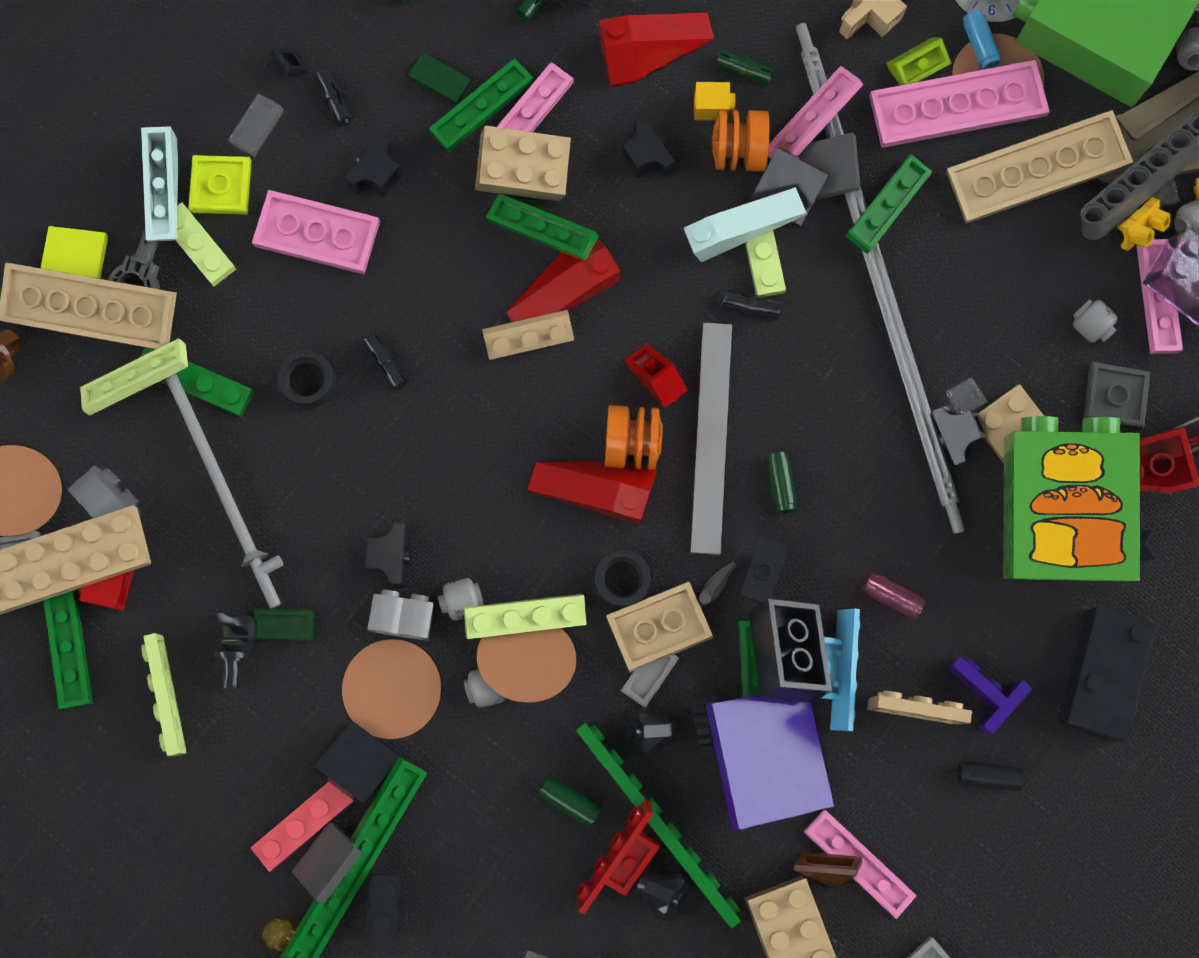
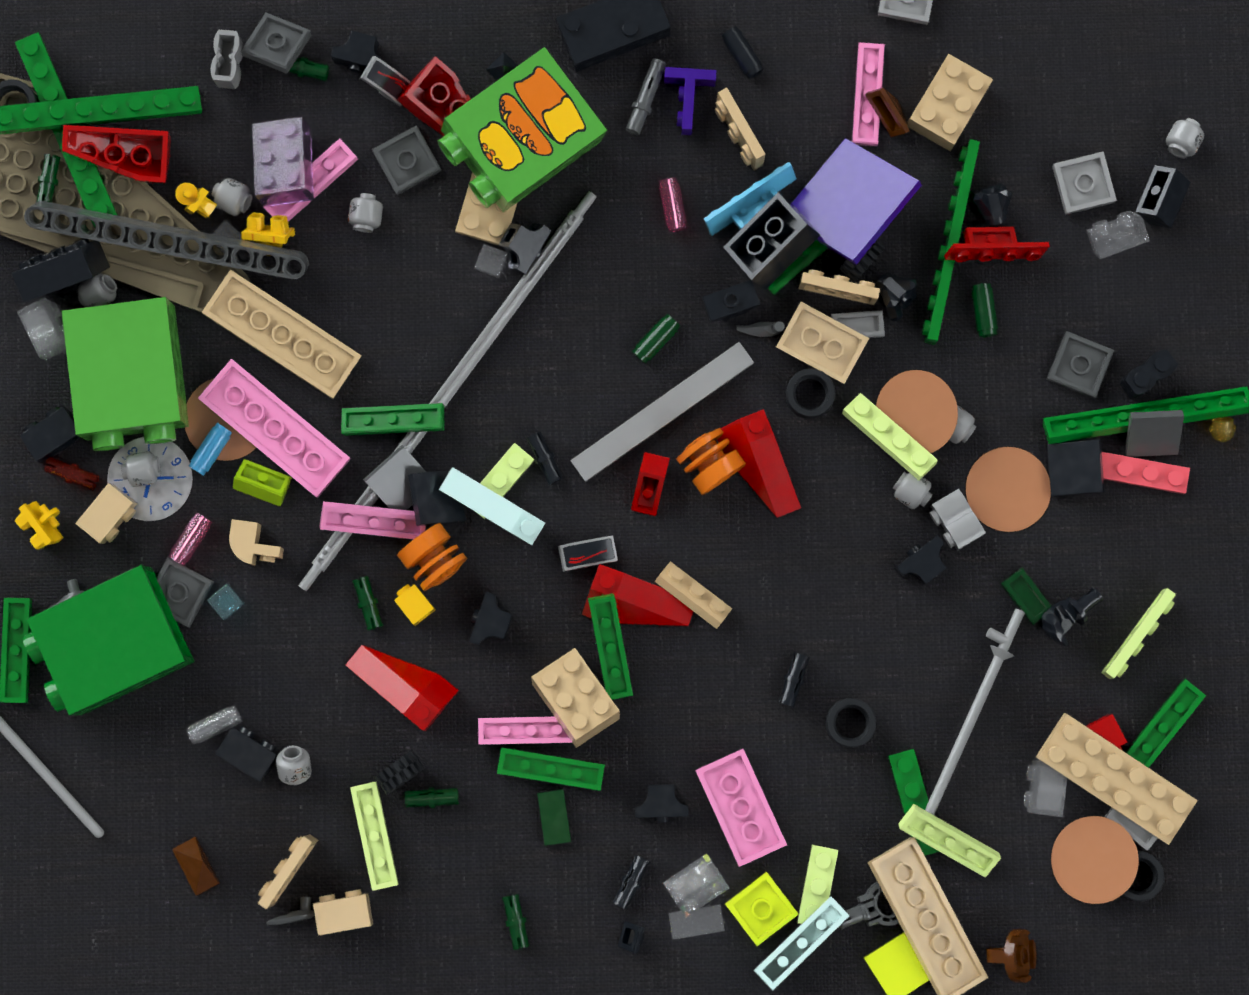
camera: 125 degrees left, 5 degrees up
(283, 141) = (695, 883): none -> clear brick
(447, 850) = (1080, 364): none -> dark grey tile
(638, 276) = (587, 553): none -> black slope
(698, 679) = (839, 287): none -> tan plate
(1015, 652) = (641, 107): none -> dark grey pin

